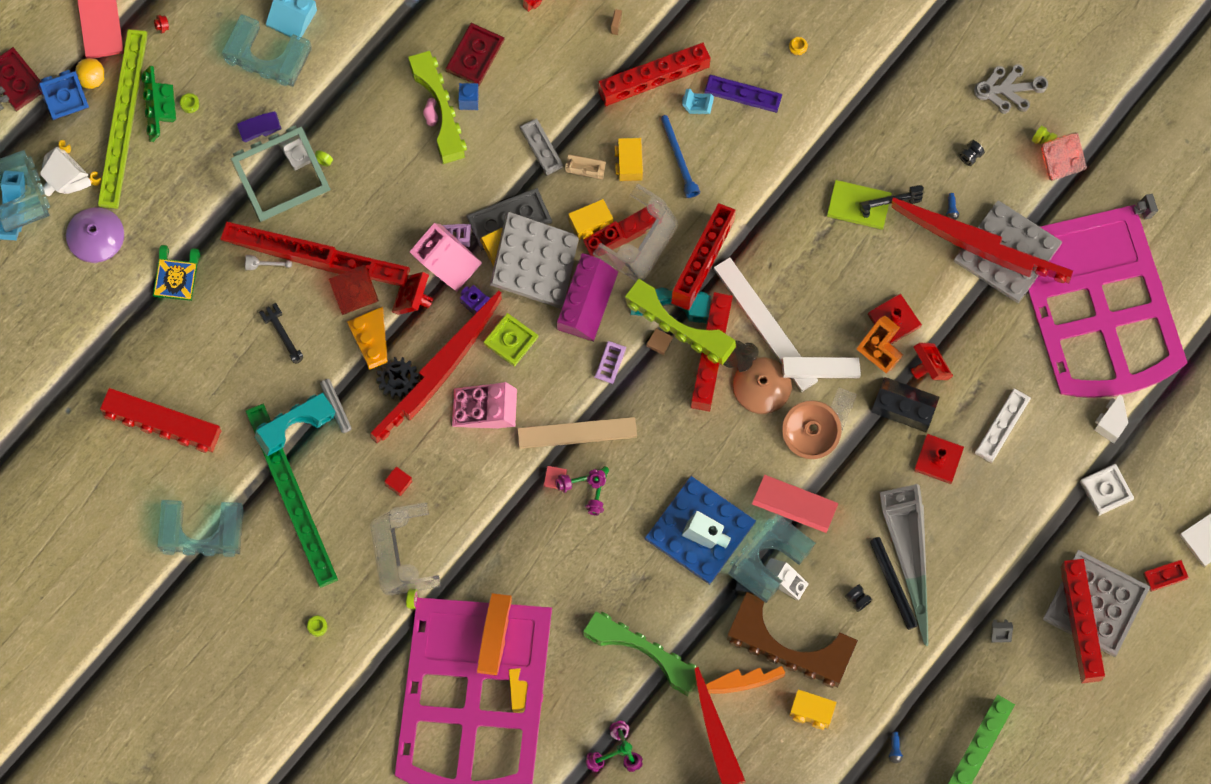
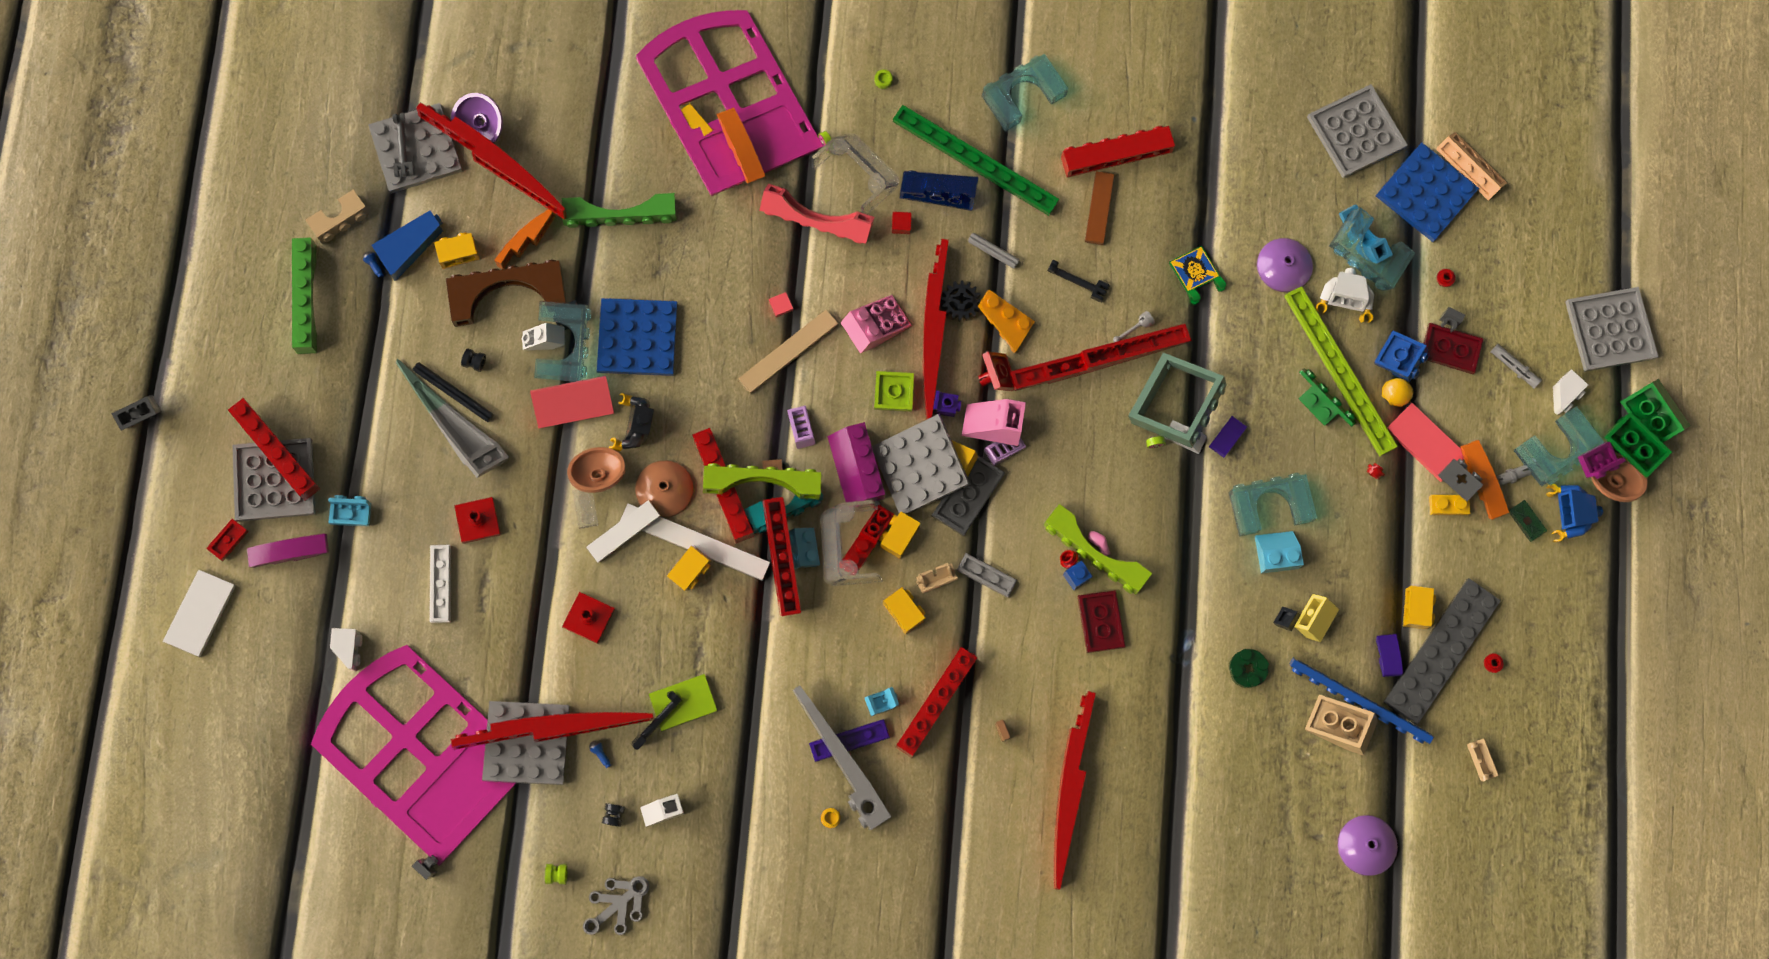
camera: 140 degrees right, 5 degrees up
(189, 103) = (1299, 421): lime tile -> none
(214, 384) = (1099, 208): none -> dark orange tile
(314, 411) = (1004, 231): teal arch -> none
(343, 485) = (939, 189): none -> clear blue wedge
(353, 290) = (1047, 346): clear red plate -> none
(447, 504) = (780, 203): none -> coral arch
(467, 119) = (1069, 559): none -> red plate
(596, 478) = (743, 309): magenta plant -> none
(632, 760) = (574, 125): magenta plant -> none
(676, 259) = (804, 547): none -> medium azure bracket
(690, 188) = (836, 620): blue piece -> none
(700, 526) = (628, 326): light aqua torso -> none
(740, 358) = (701, 501): clear smoke plate -> none
(749, 447) = (638, 423): none -> black torso
(760, 46) = (860, 784): none -> light grey piece
(785, 301) = (689, 568): none -> yellow brick
(855, 744) = (407, 243): none -> blue slope
(877, 346) = (582, 576): orange brick -> none
(905, 404) = (533, 547): black slope -> none
(929, 130) = (662, 810): none -> white slope
(931, 363) = (530, 593): red tile -> none
(1001, 631) = (340, 405): dark grey tile -> none
(1045, 532) = (349, 511): none -> medium azure bracket
(1063, 156) = (528, 865): clear red plate -> none
(1107, 489) = (319, 584): white tile -> none
(1118, 531) = (287, 550): none -> magenta slope
(1186, 737) = (136, 412): none -> dark grey brick

